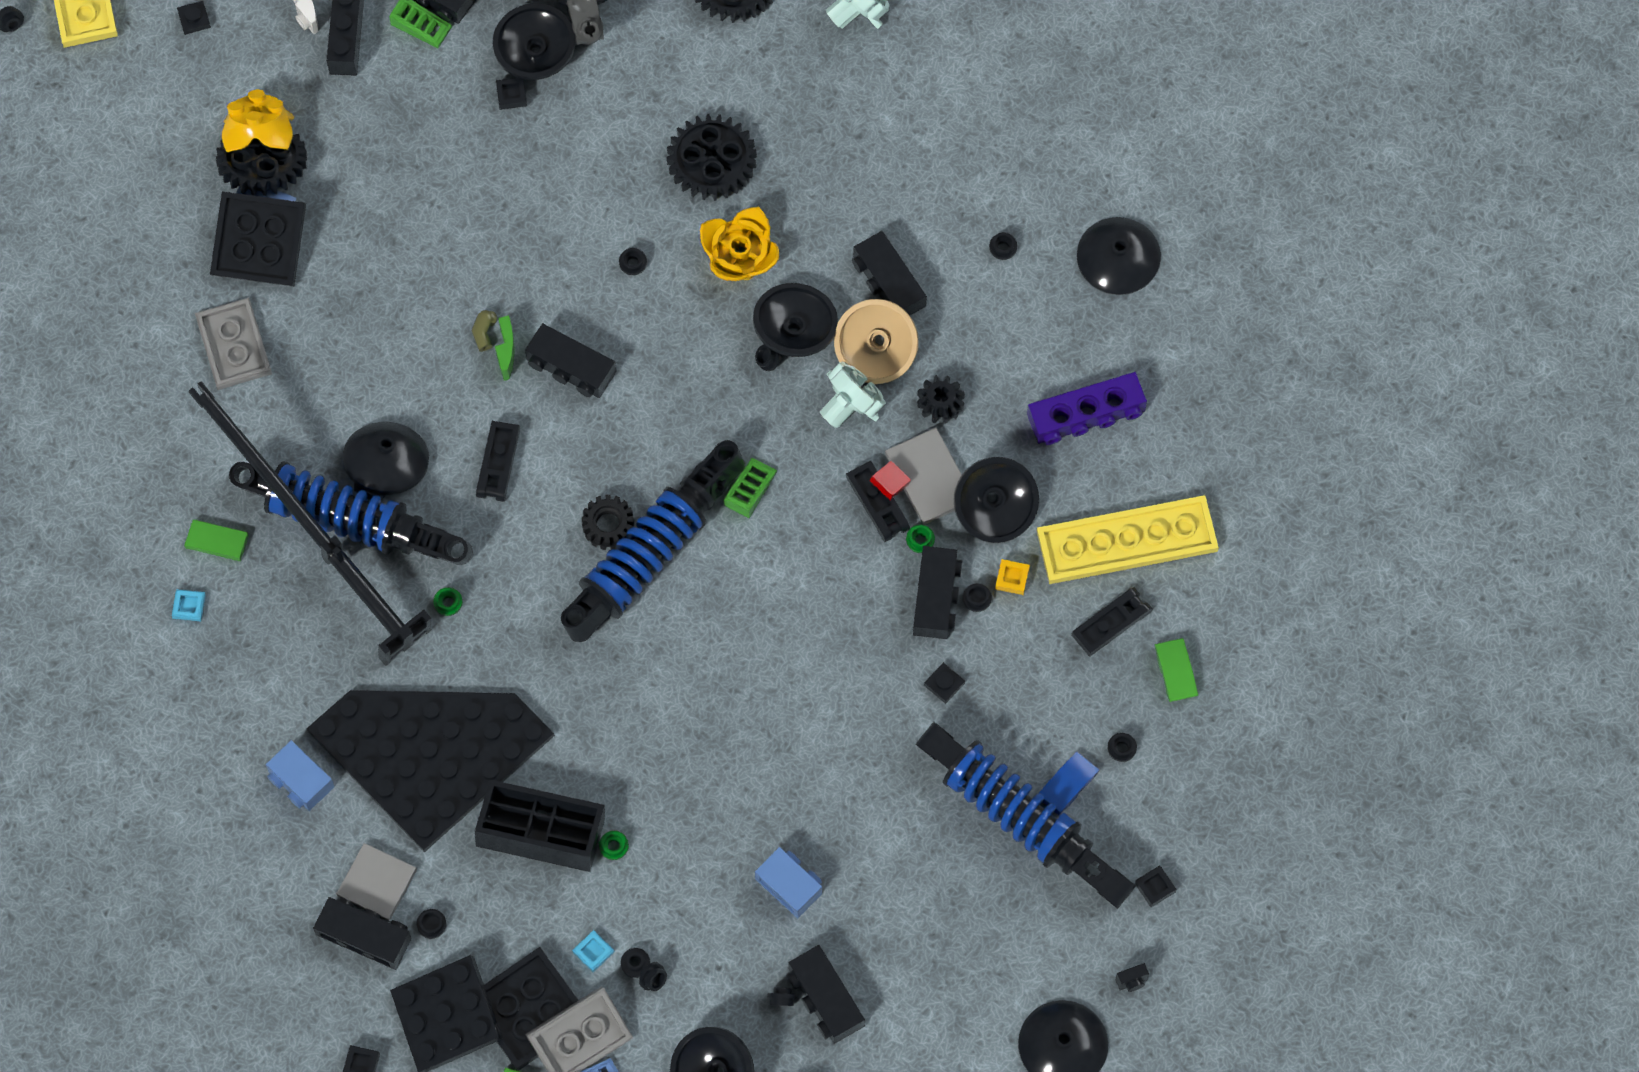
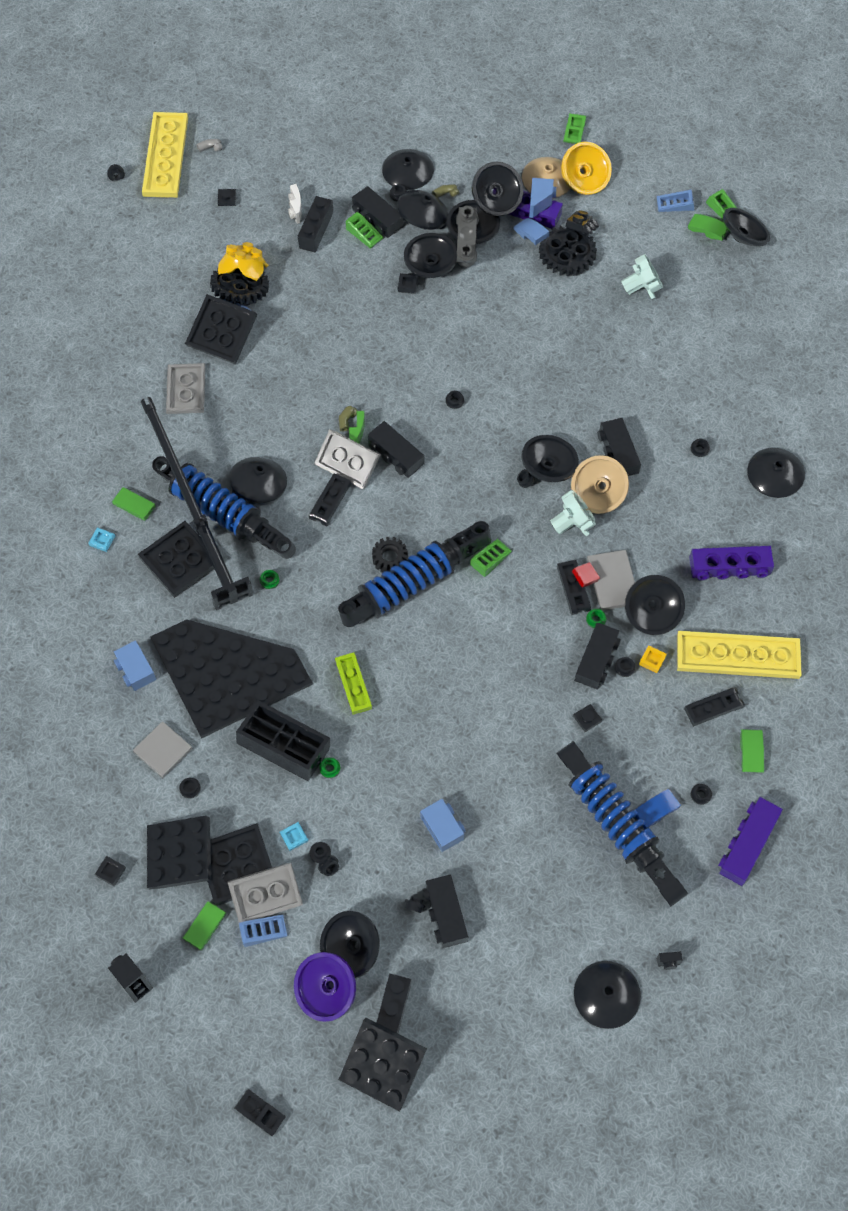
camera: 15 degrees right, 5 degrees down
(308, 605) = (177, 559): none -> black plate
(363, 932) = (141, 780): black brick -> none
(505, 394) = (347, 458): none -> tile
(611, 719) = (353, 683): none -> lime plate
(728, 140) = (523, 355): black gear -> none
(747, 230) = (517, 400): yellow brick -> none
(940, 409) = (641, 529): black gear -> none
(1155, 886) = (701, 898): black plate -> none
(1201, 793) = (750, 841): none -> dark purple brick

